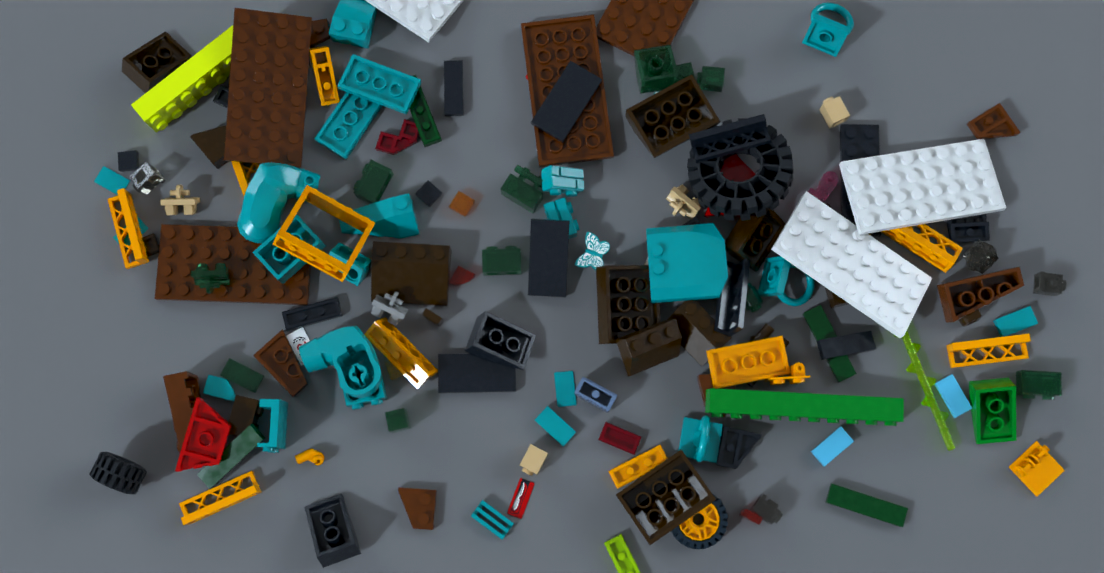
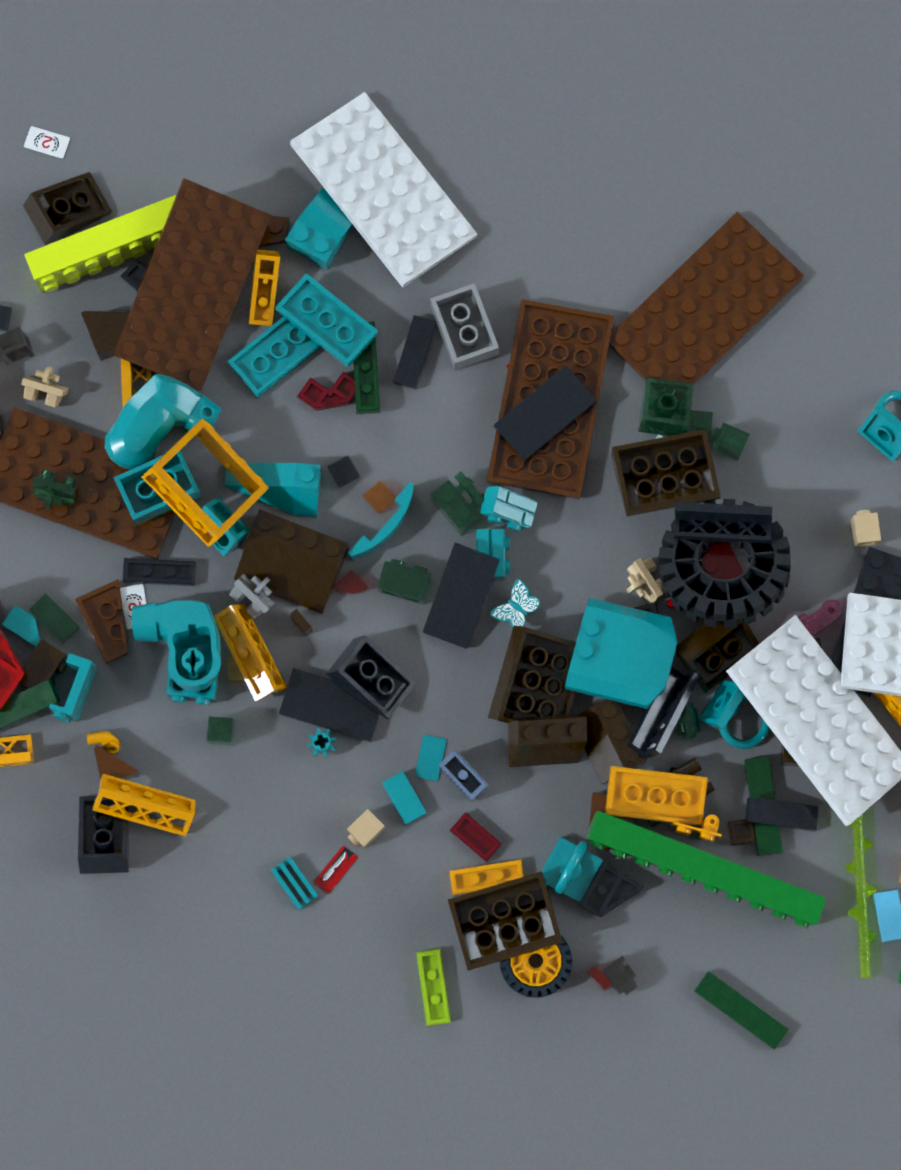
camera: 15 degrees right, 0 degrees up
(126, 20) = (46, 142): none -> white sticker
(321, 476) = (113, 766): none -> reddish brown slope
(356, 493) = (147, 801): none -> light orange fence
(373, 182) = (281, 437): clear green brick -> none
(419, 506) = (214, 840): reddish brown wing -> none
(464, 244) = (365, 546): none -> teal slope
(484, 405) = (315, 739): none -> teal gear
(485, 56) = (464, 326): none -> light grey brick
(819, 368) = (741, 832): none -> dark brown tile
(832, 446) = (724, 928): medium azure tile -> none

